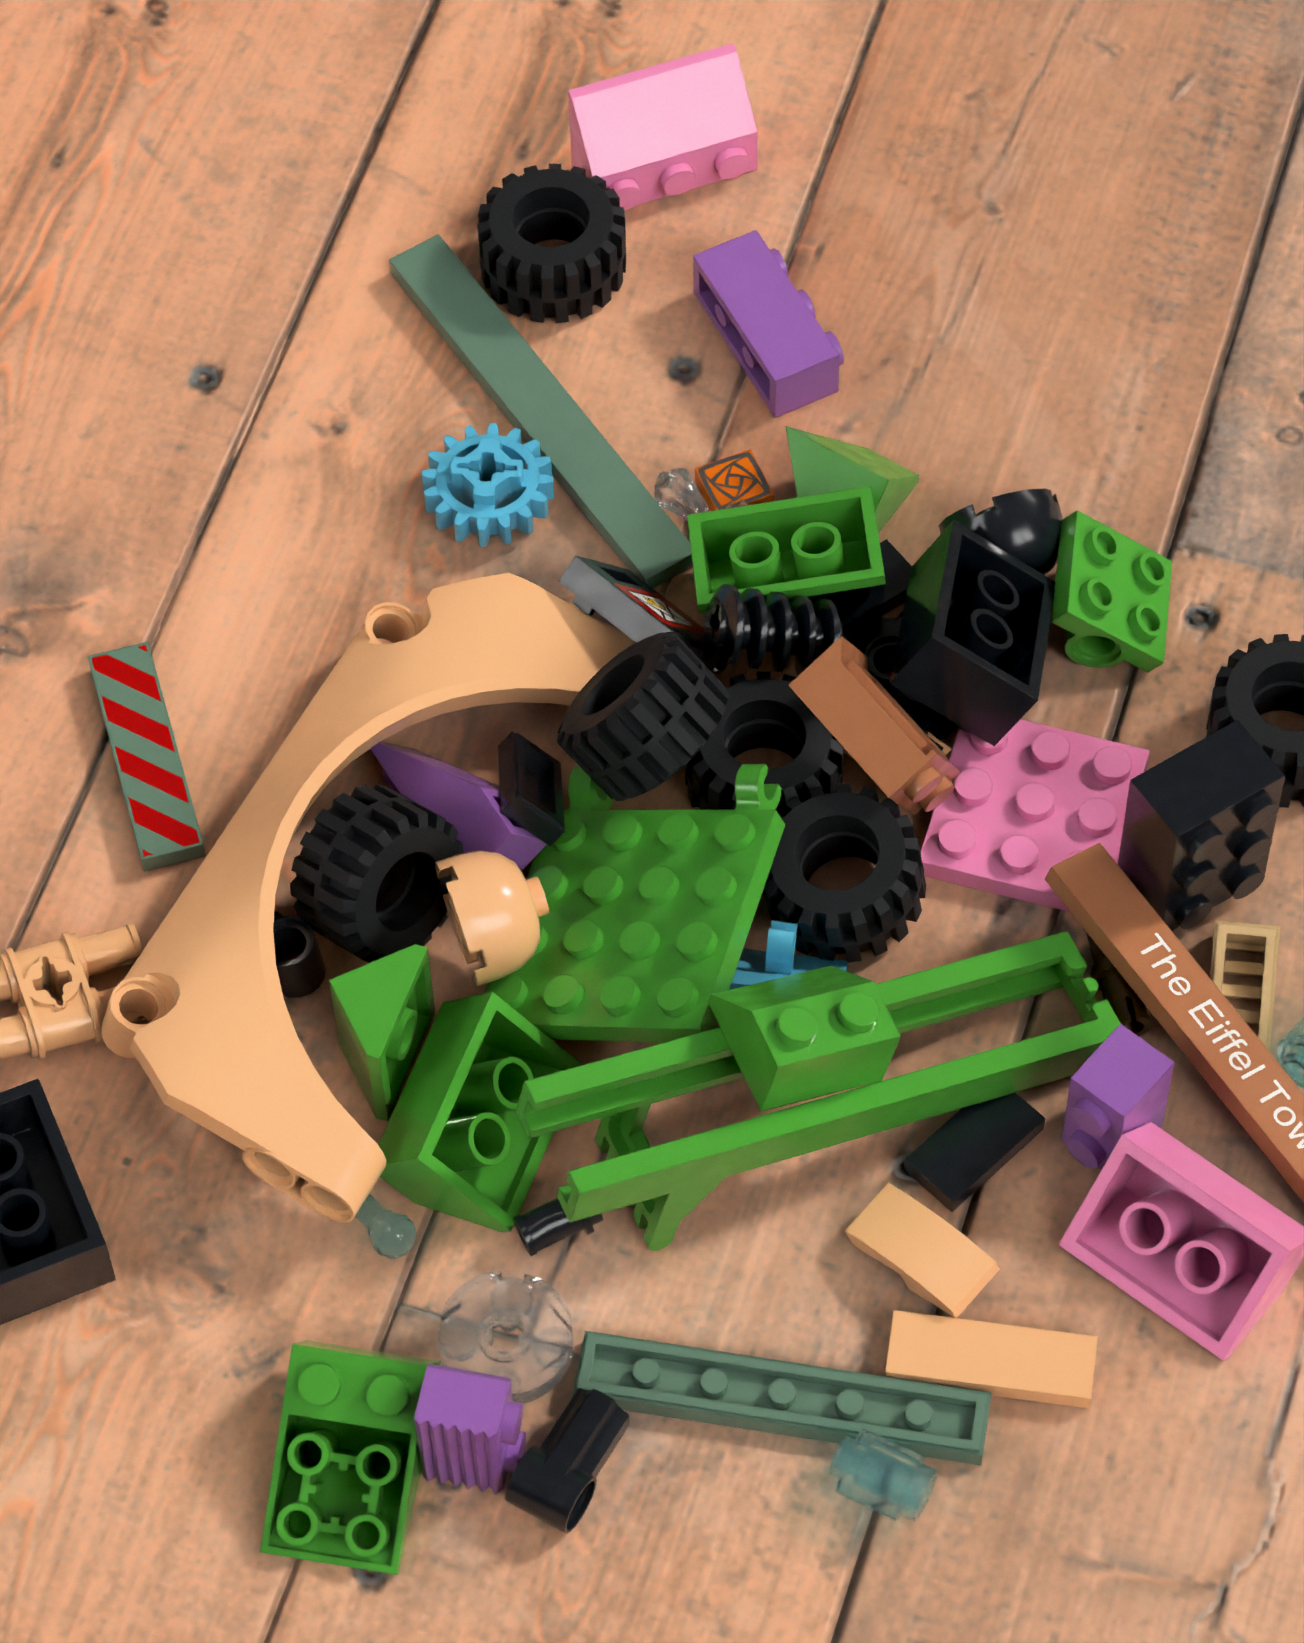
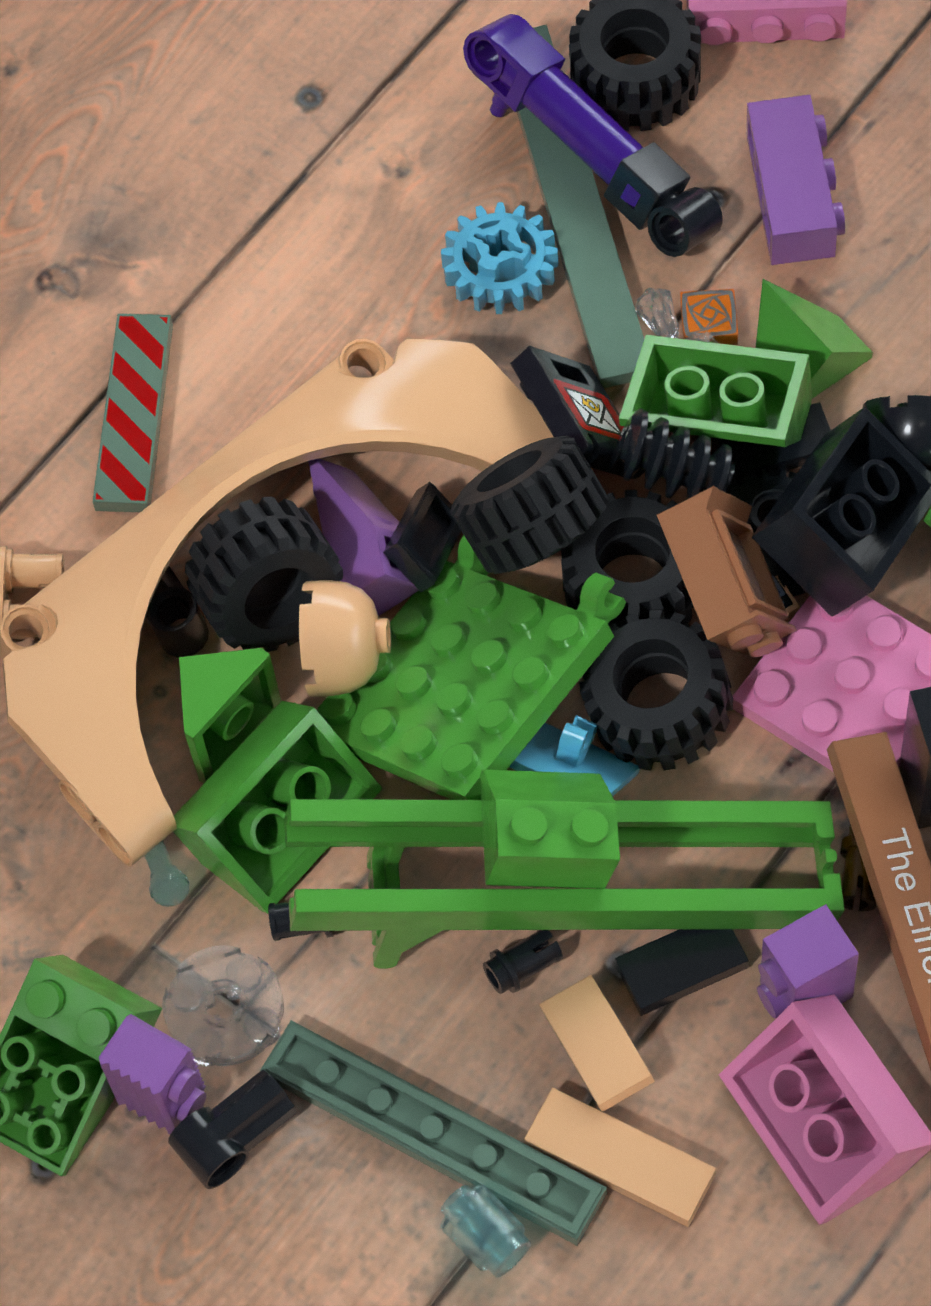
camera: 25 degrees right, 5 degrees up
(611, 364) = (640, 179): none -> dark purple piece
(797, 1205) = (511, 967): none -> black pin

